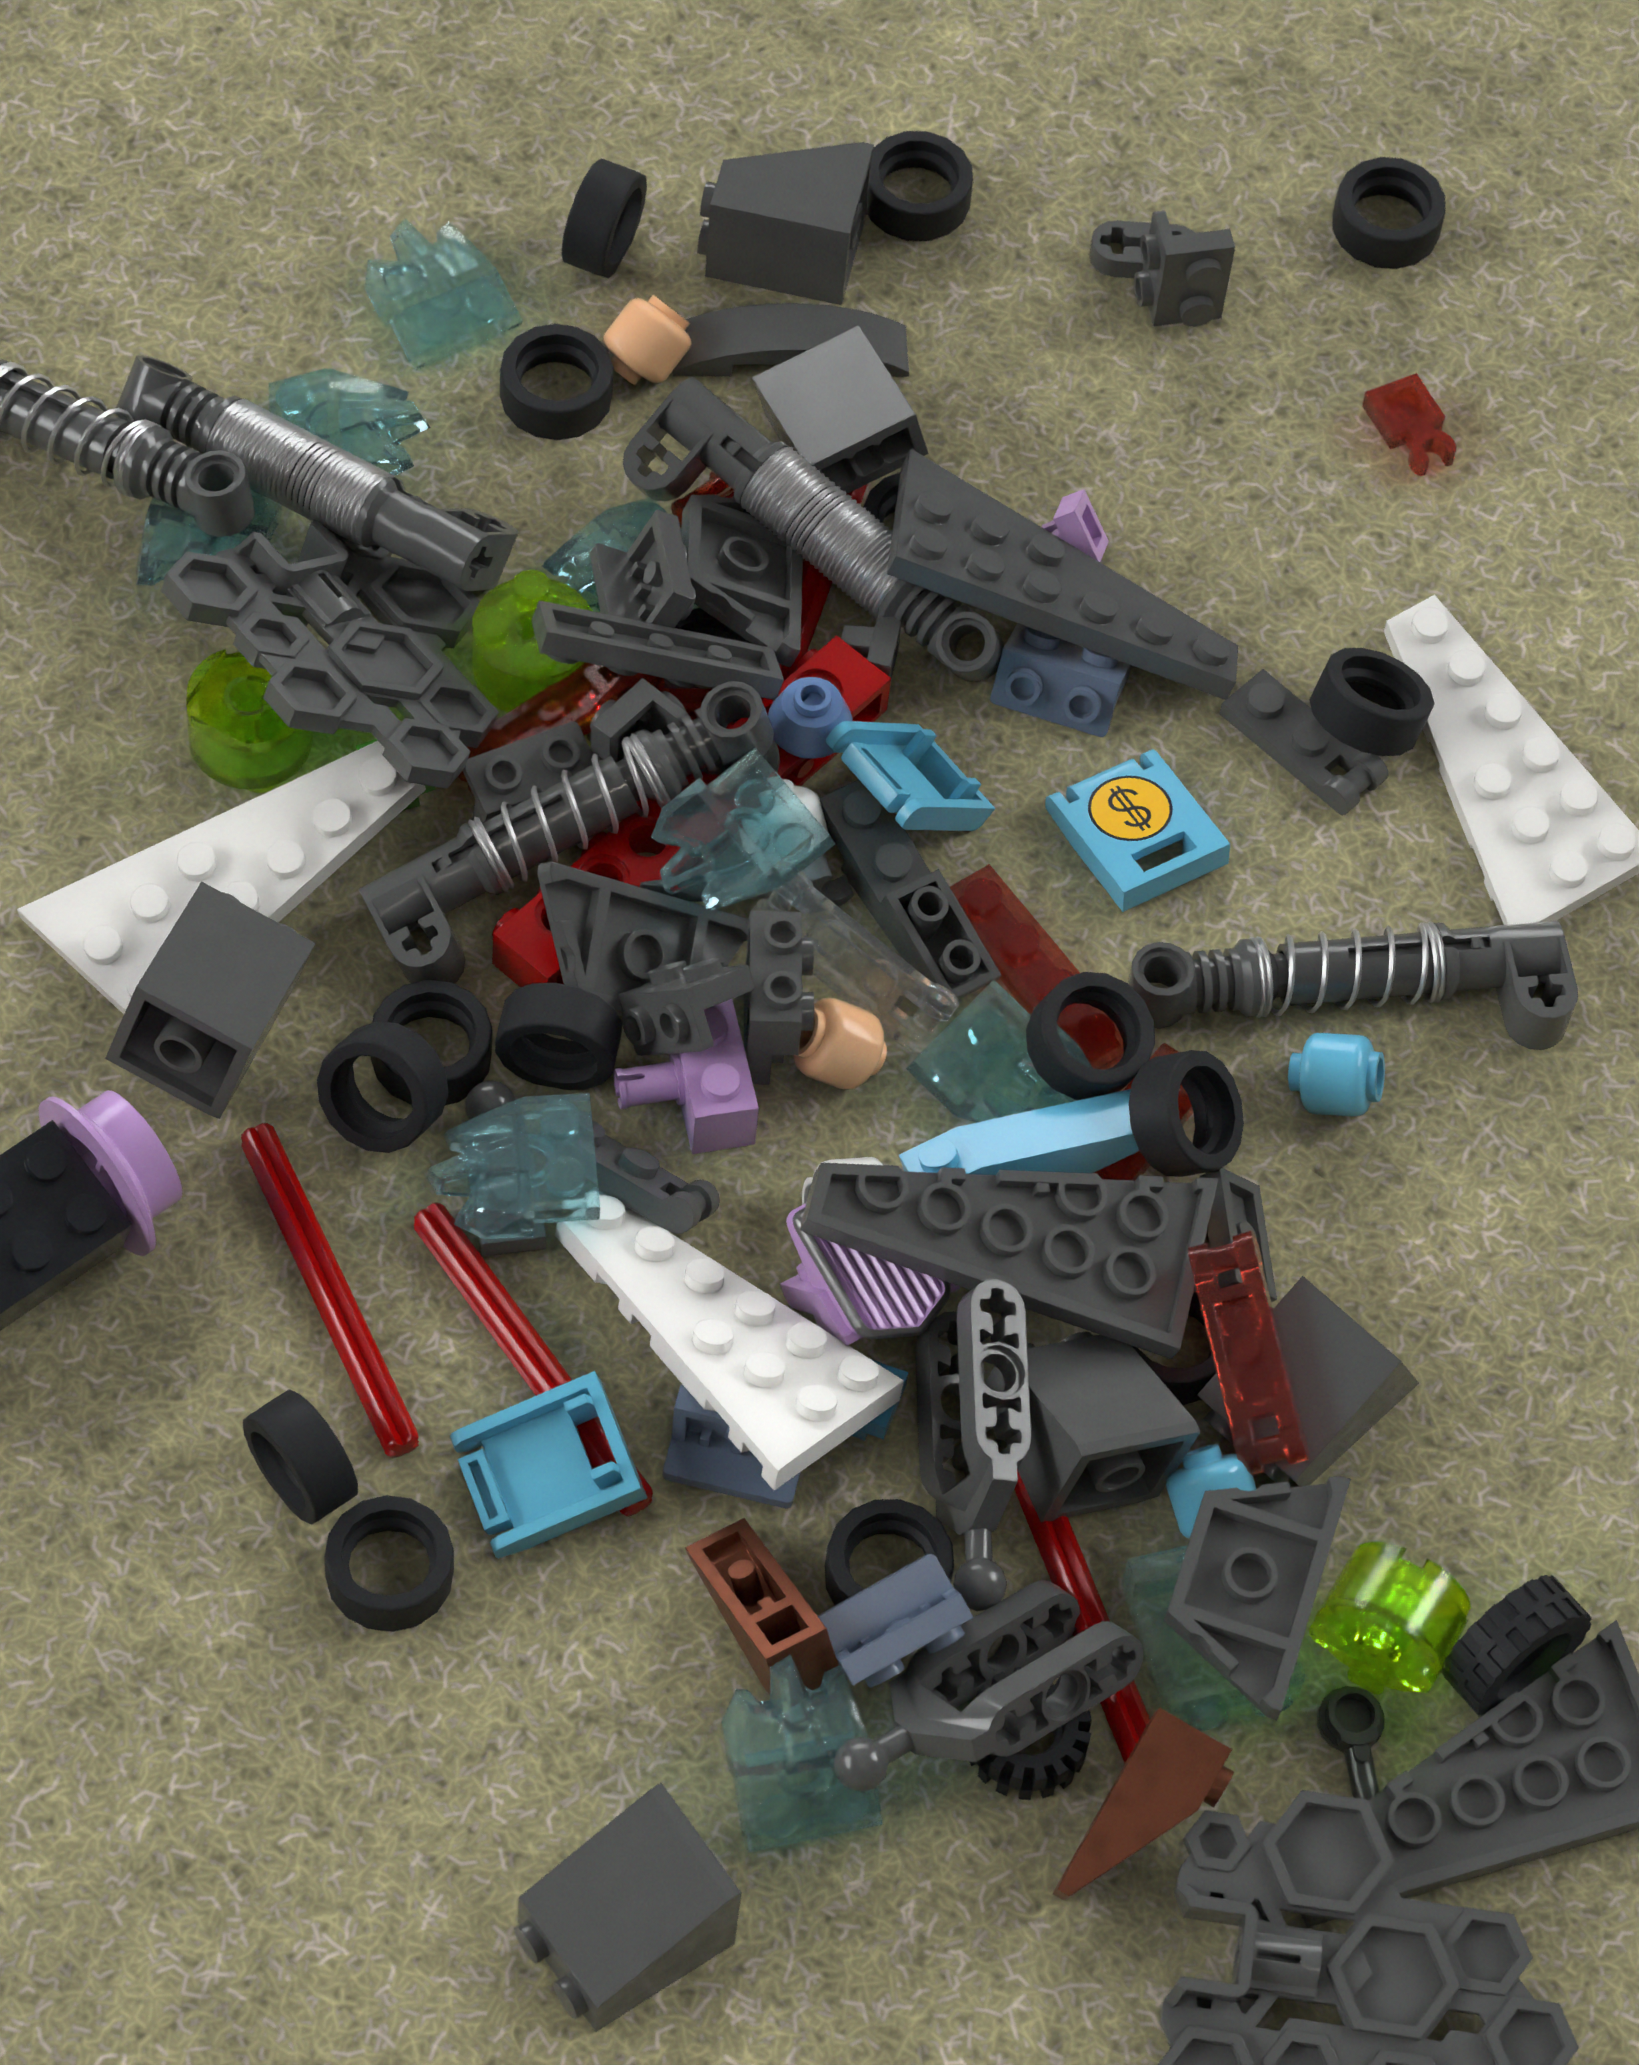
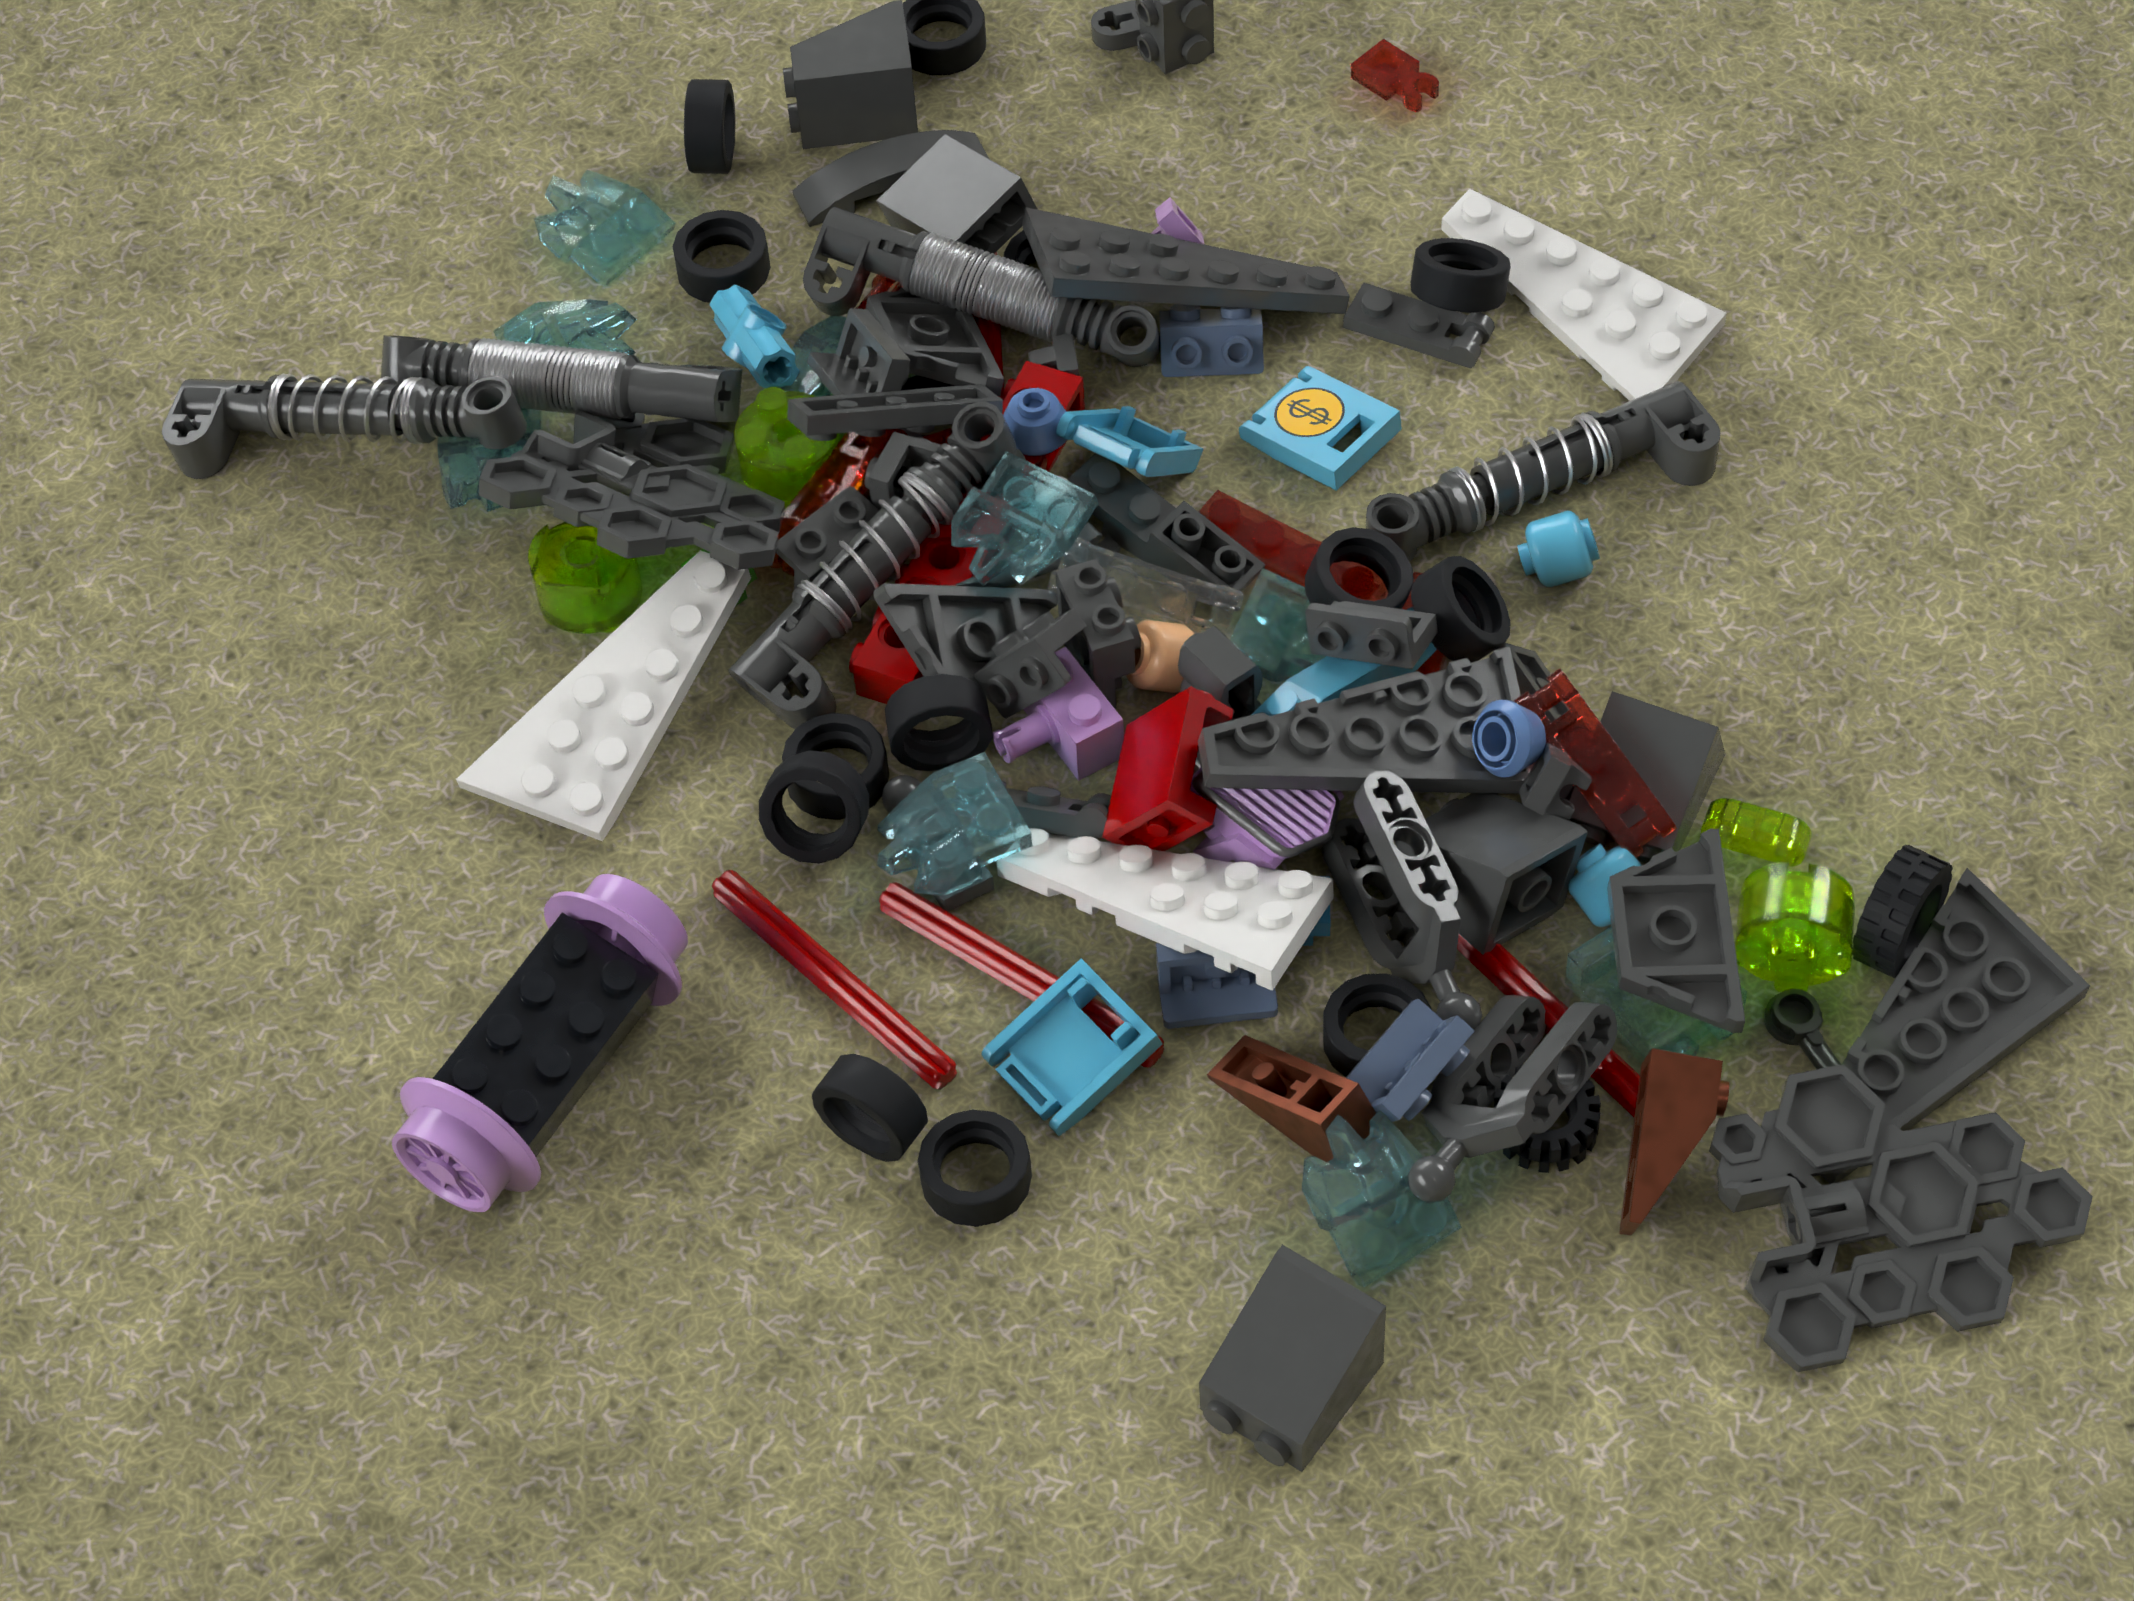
camera: 10 degrees left, 5 degrees down
(209, 1000) = (646, 789): dark grey slope -> none
(548, 498) = (754, 337): none -> medium azure piece
(647, 340) = (781, 202): light nougat head -> none
(763, 1184) = (1155, 773): none -> red panel
(882, 1101) = (1220, 668): none -> dark grey brick
(1068, 1108) = (1369, 633): none -> dark grey bracket
(1159, 1292) = (1508, 738): none -> medium blue cone
(1186, 1351) = (1547, 778): none -> dark grey tile
(1406, 1490) = (1758, 831): none -> clear neon green beam

